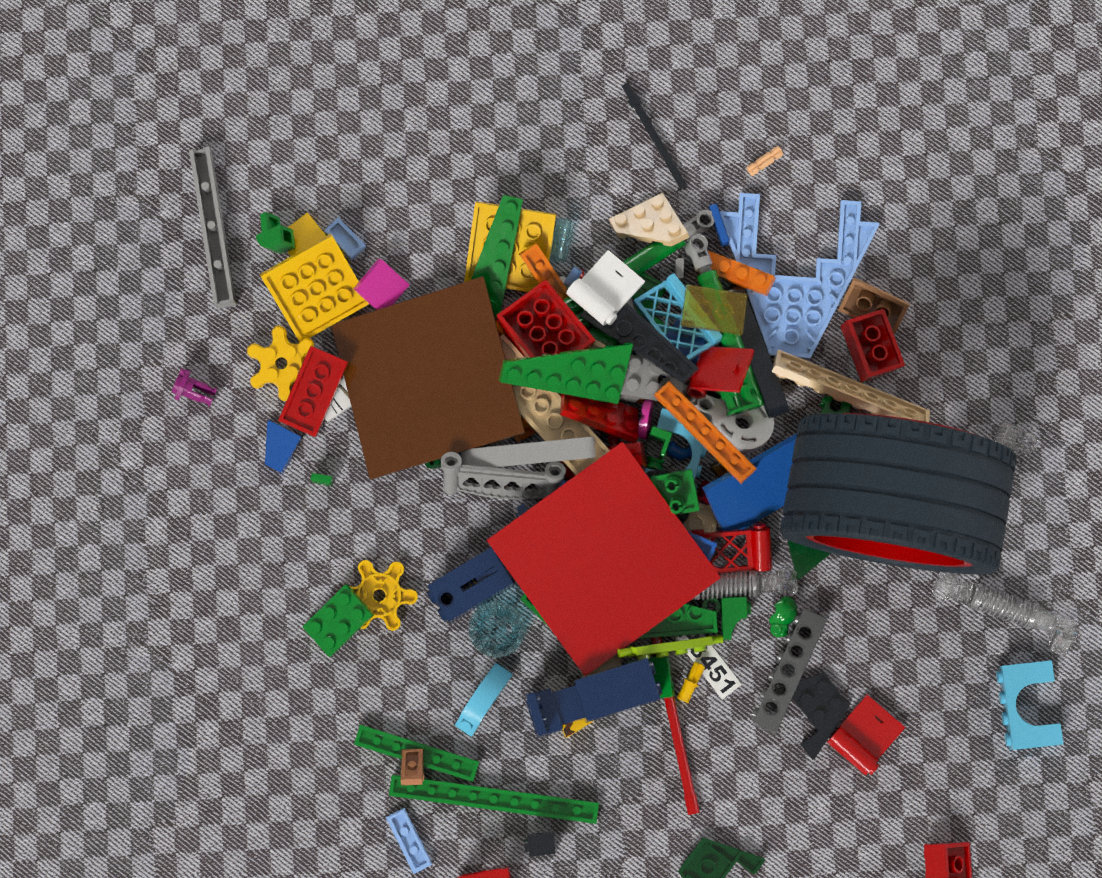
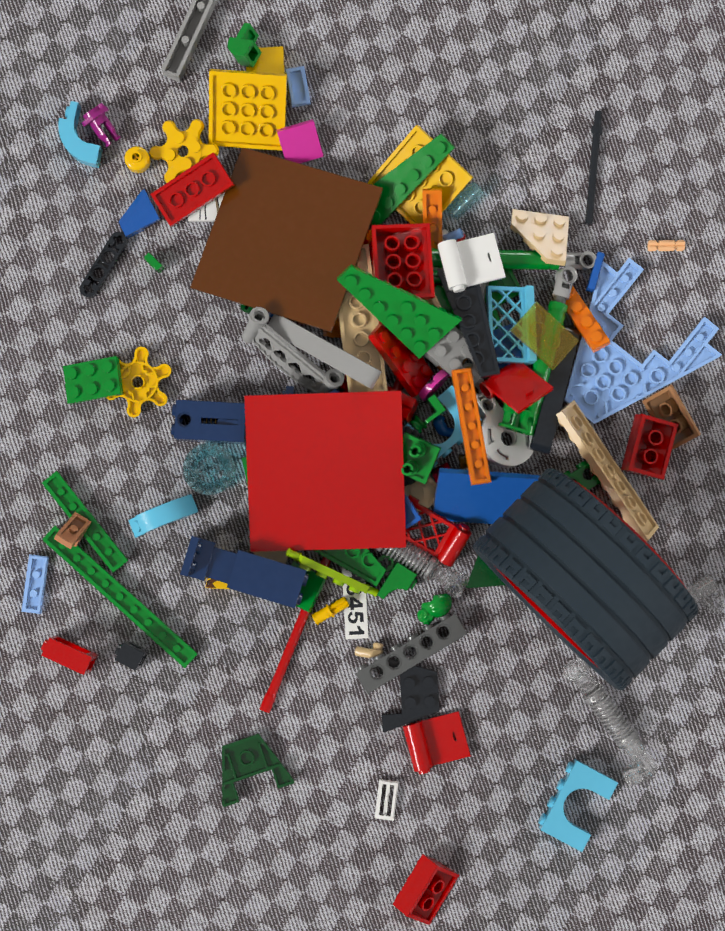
camera: 30 degrees right, 5 degrees up
(186, 424) = (83, 152): none -> medium azure arch
(244, 391) = (135, 165): none -> yellow head
(281, 511) = (101, 263): none -> black beam
(679, 268) = (540, 285): light grey tile -> none
(752, 696) = (369, 653): none -> tan arm
(849, 802) = (388, 783): none -> white tile

